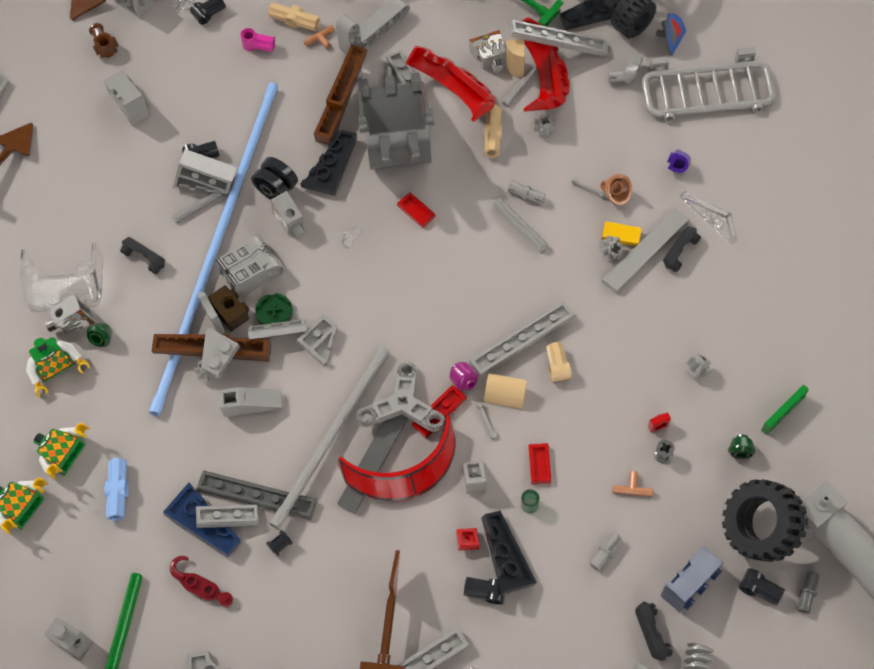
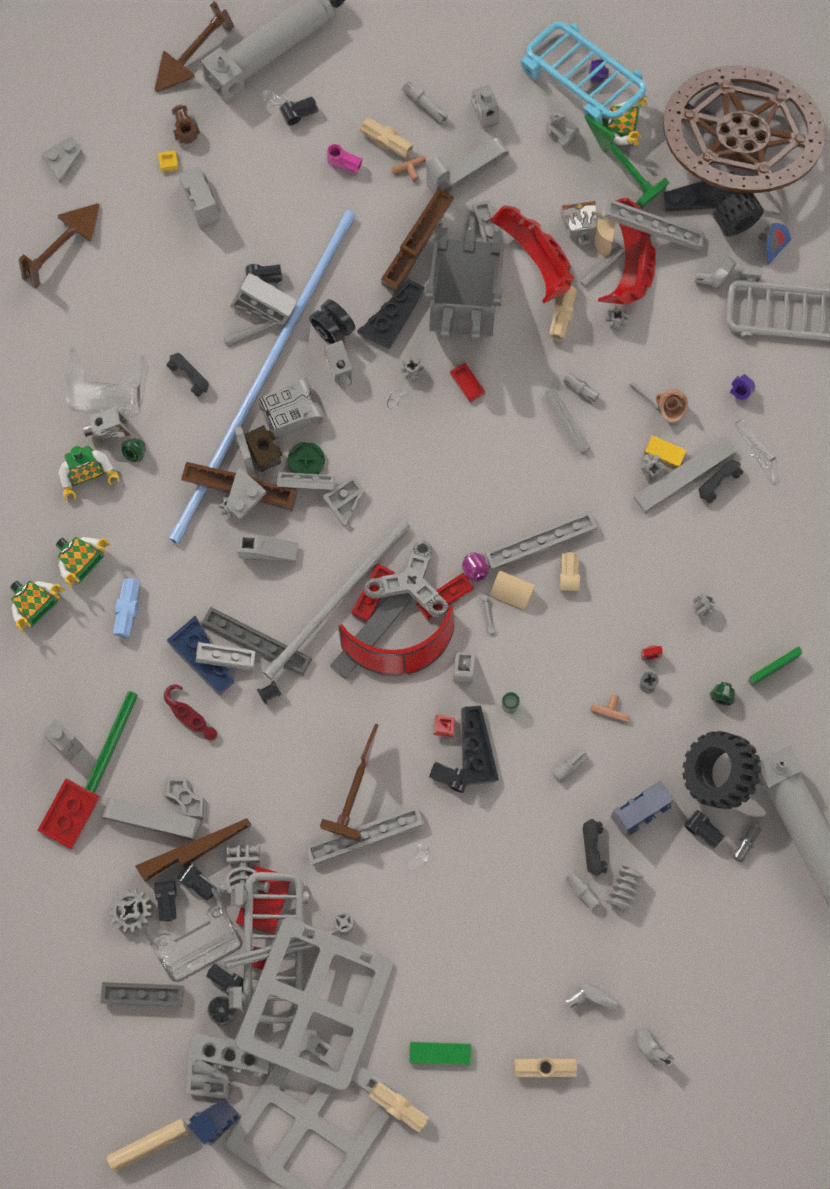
camera: 10 degrees right, 10 degrees up
(92, 74) = (168, 161): none -> yellow tile
(360, 207) = (412, 373): none -> light grey gear
(362, 436) = (366, 606): none -> red tile
(539, 463) = (528, 668): red tile -> none

